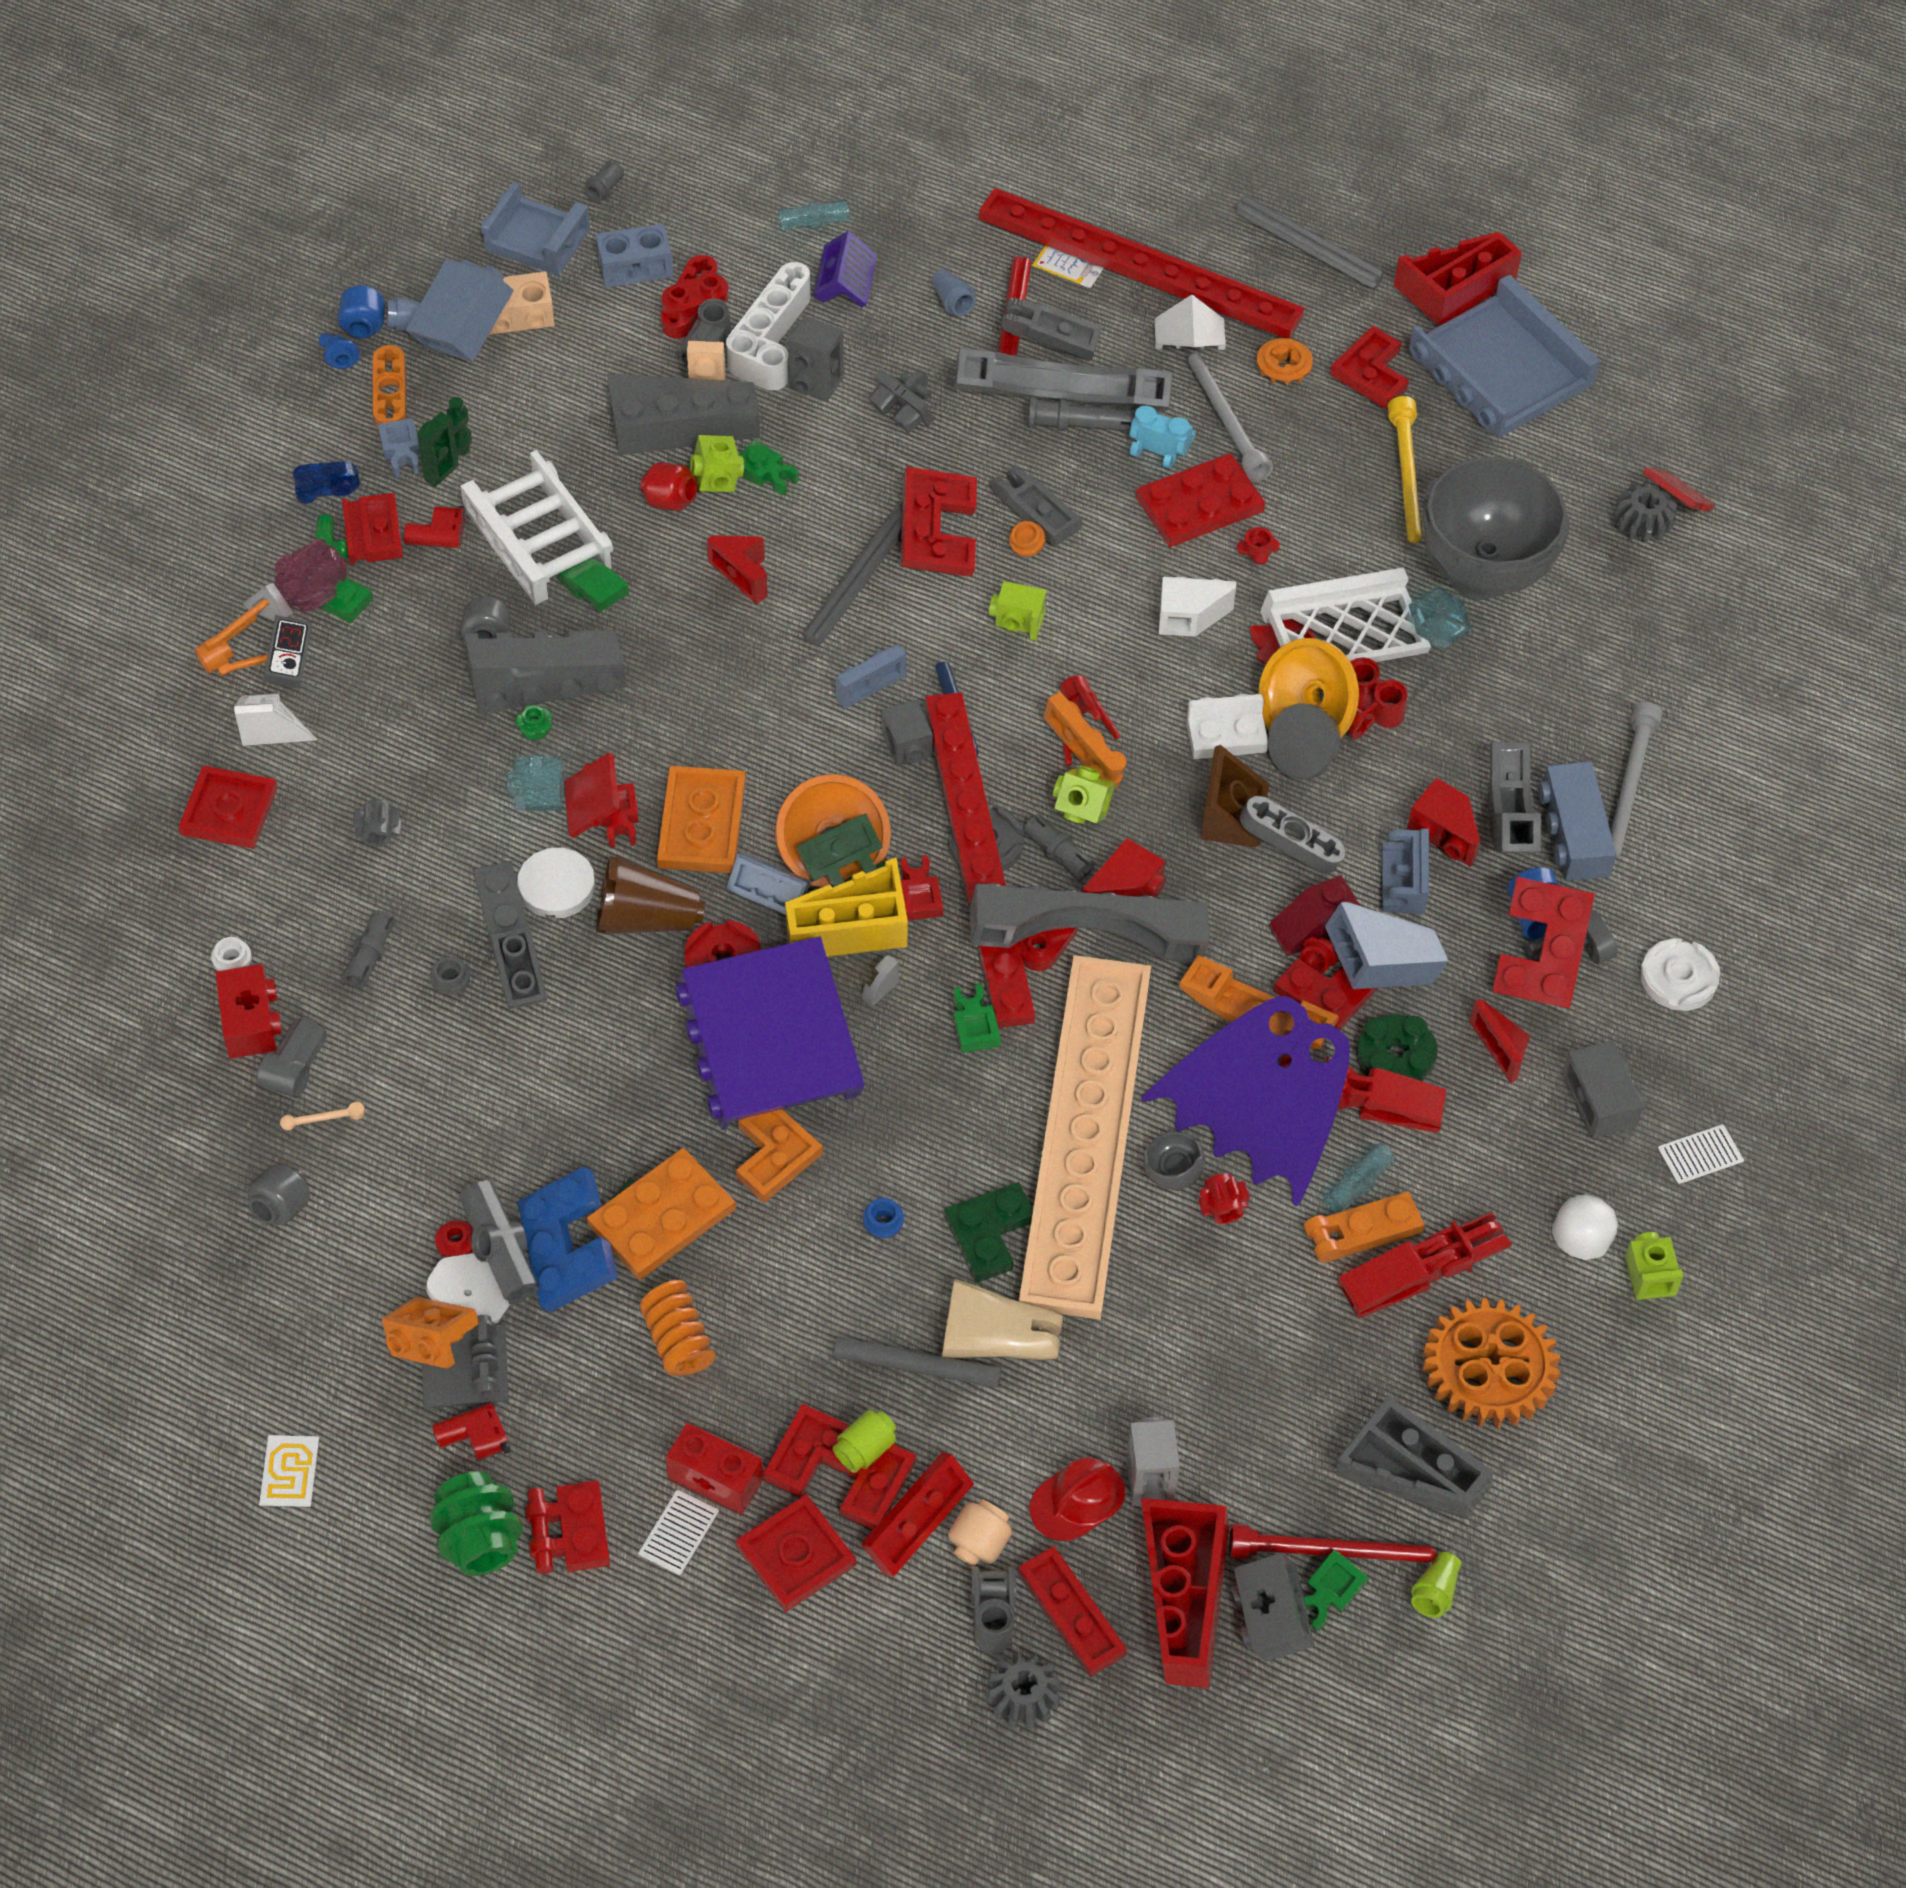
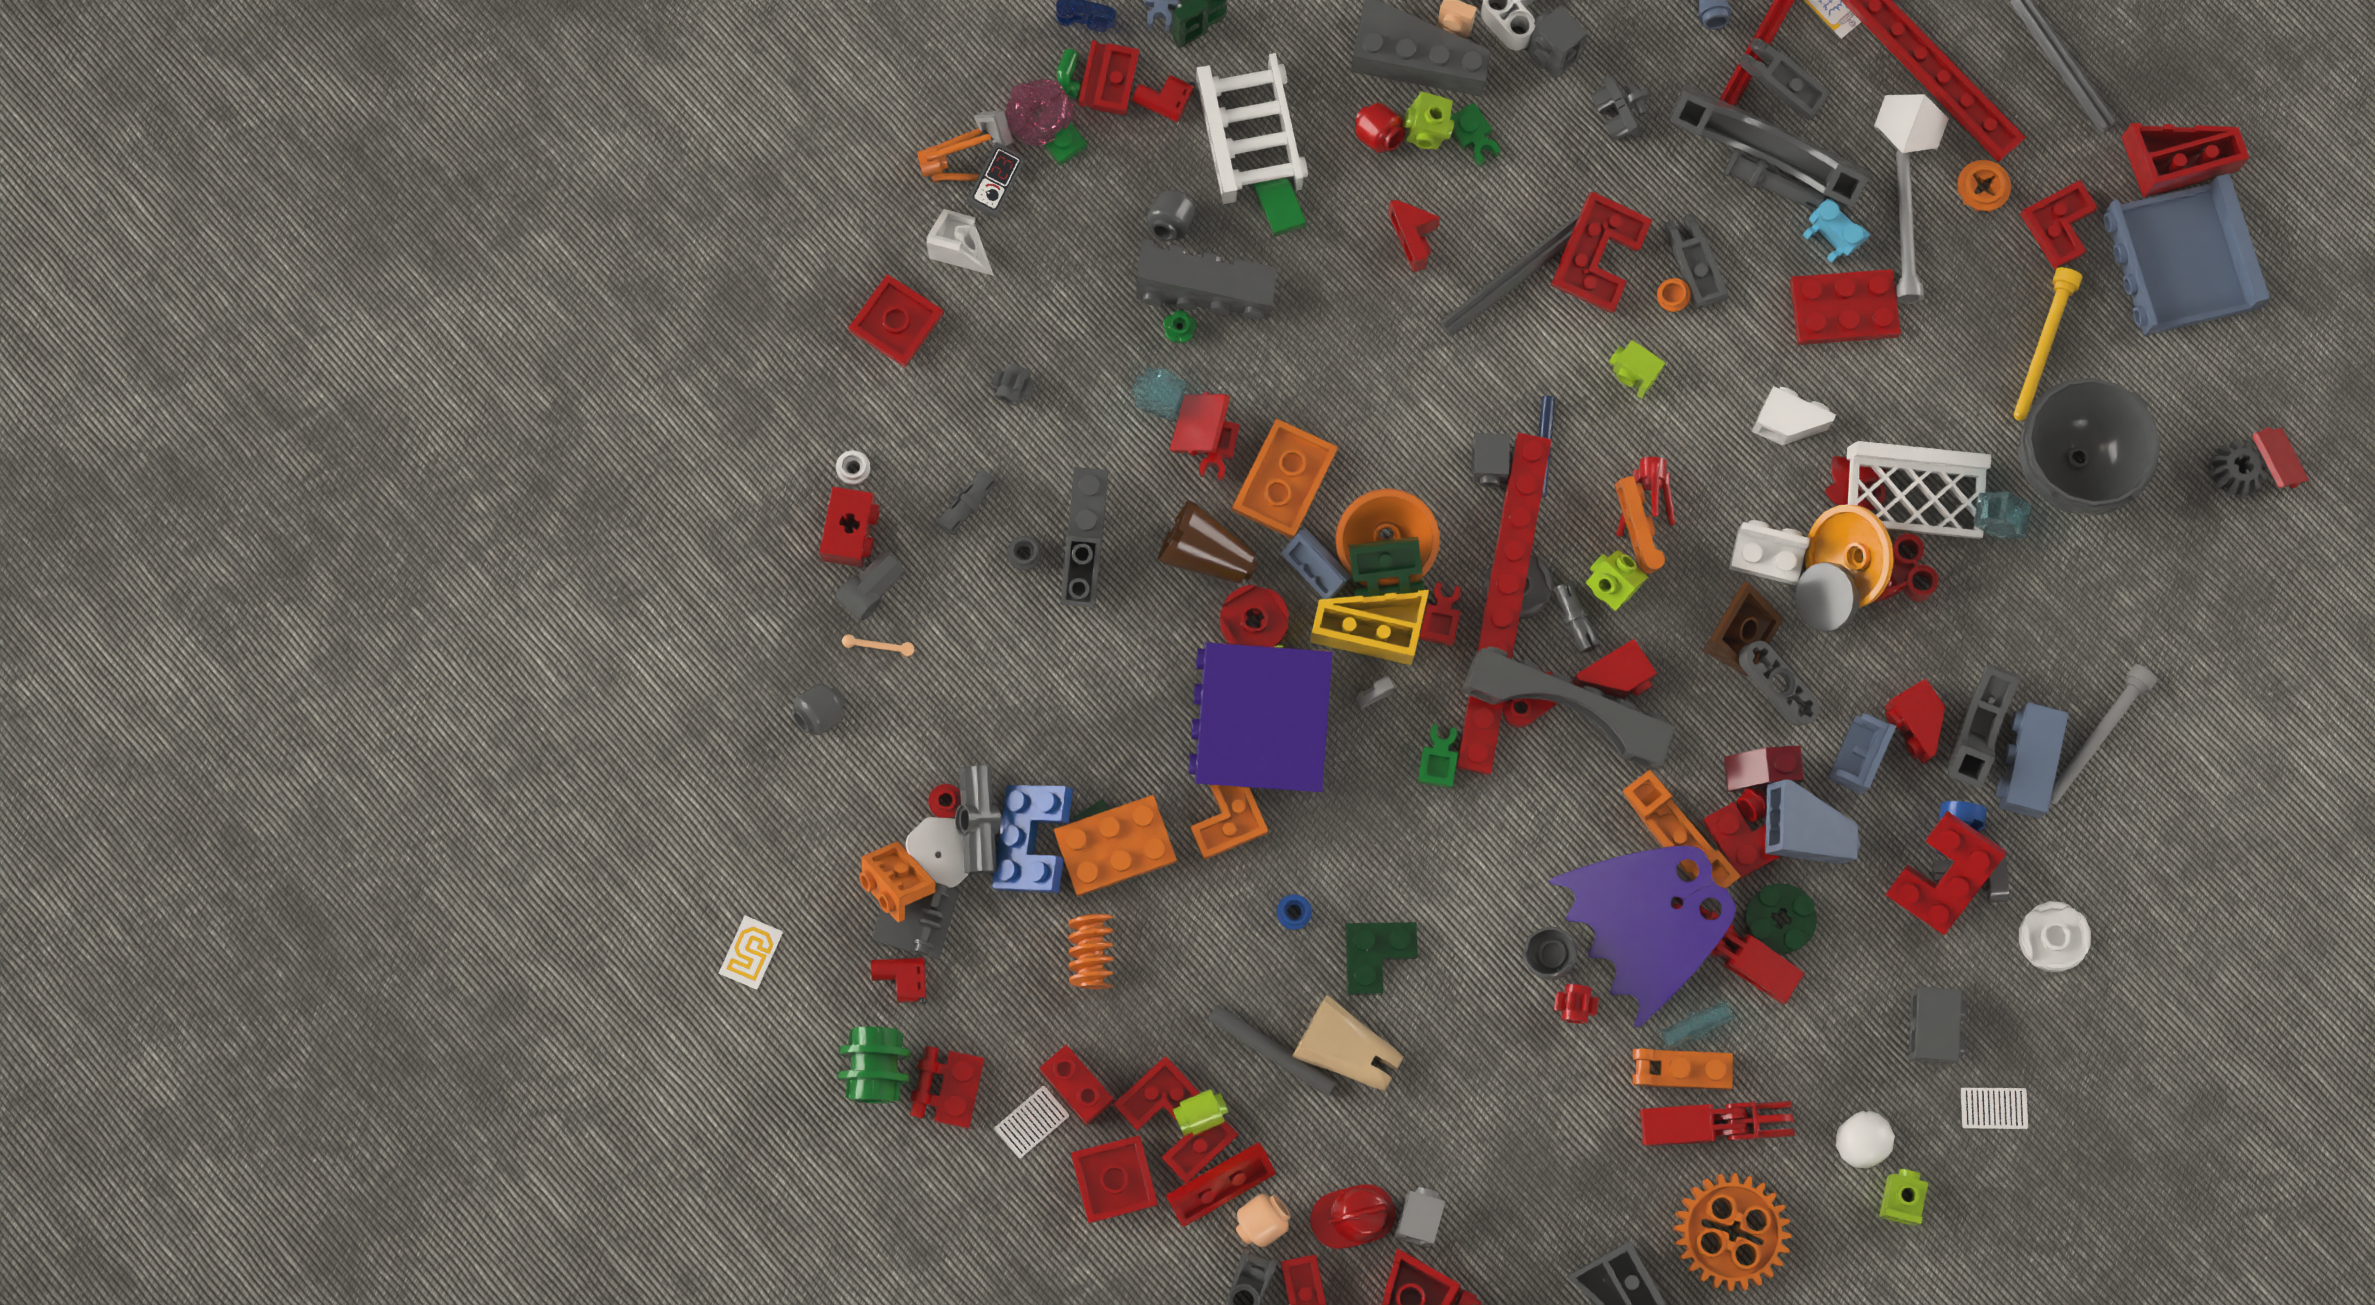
camera: 20 degrees right, 20 degrees up
(556, 882) = (1142, 494): white tile -> none
(870, 676) = (1469, 391): sand blue plate -> none
(1085, 1137) = (1488, 899): light nougat plate -> none
(1258, 545) = (1880, 366): red plate -> none
(1501, 1038) = (1875, 943): red slope -> none

